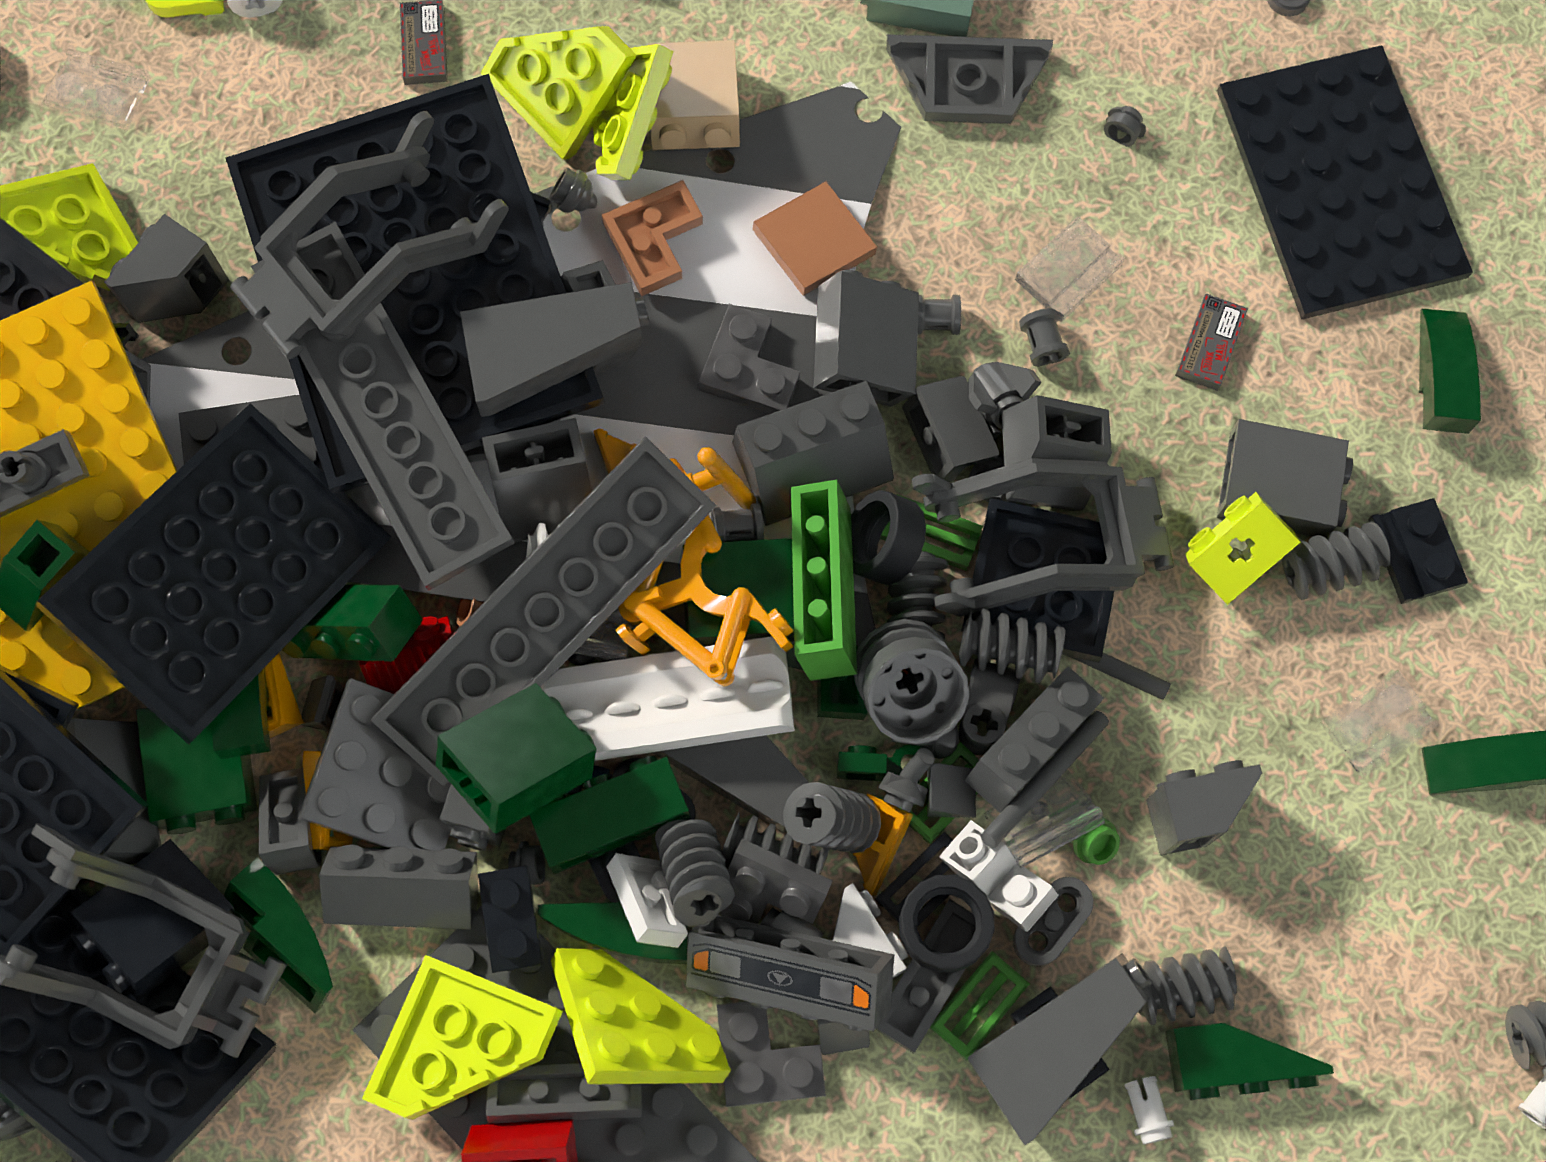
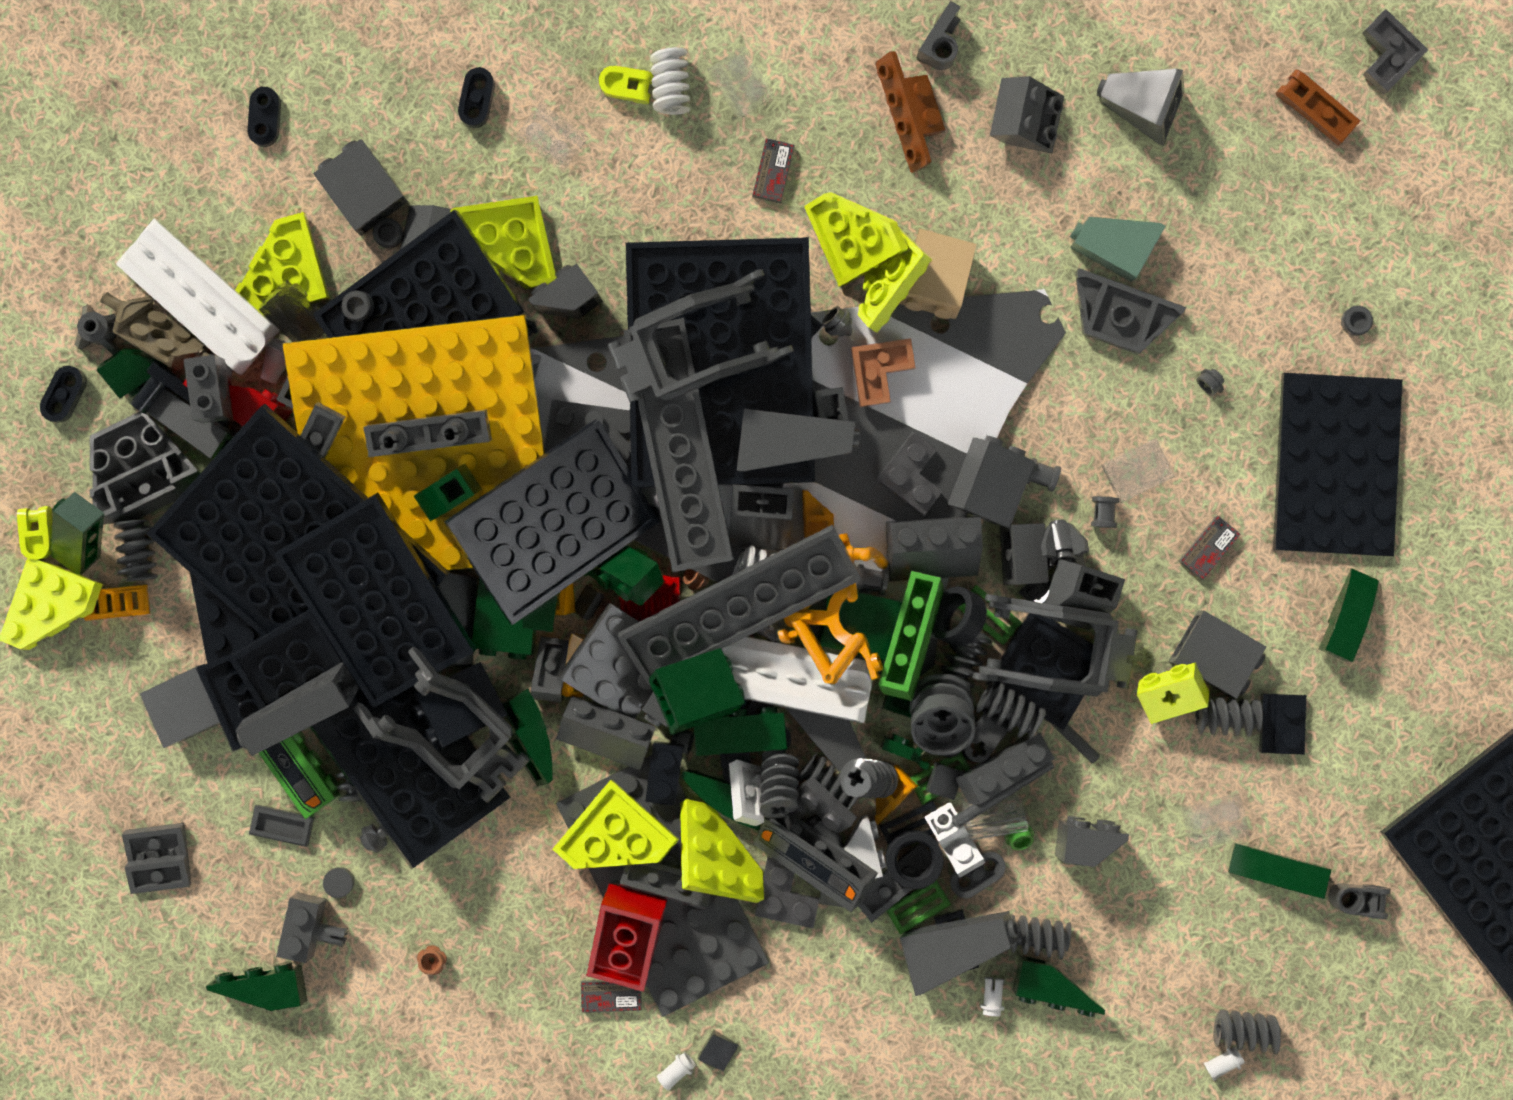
camera: 25 degrees right, 15 degrees up
(814, 238) = (982, 400): nougat tile -> none
(903, 788) = (918, 772): dark grey plate -> none

